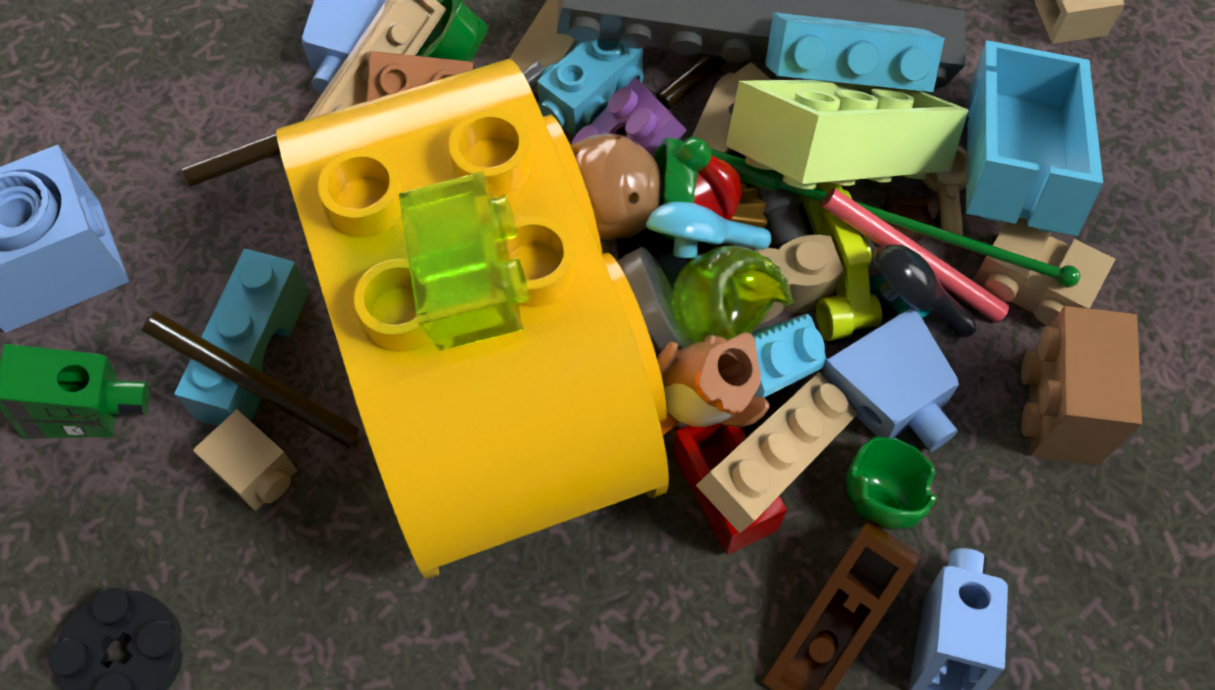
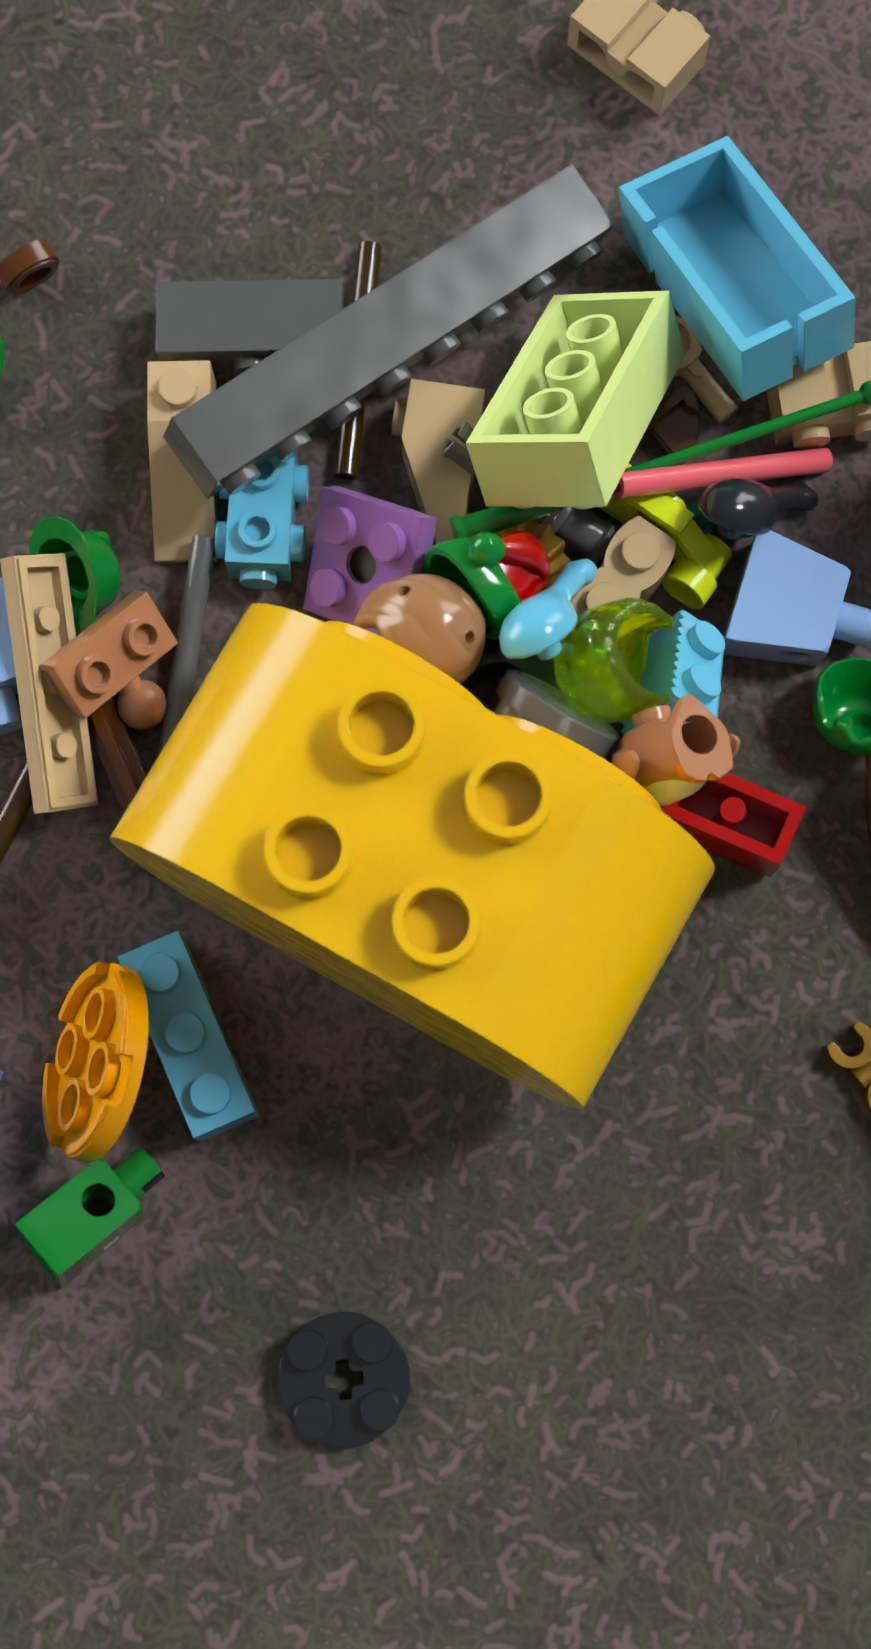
camera: 40 degrees left, 15 degrees up
(160, 294) = (96, 1062): none -> light orange tile
(246, 460) = (300, 1138): tan brick -> none
(249, 378) = (251, 1069): dark brown piece -> none
(462, 261) = (476, 852): clear neon green brick -> none
(777, 452) = (763, 779): tan plate -> none
(853, 52) = (517, 308): medium azure brick -> none

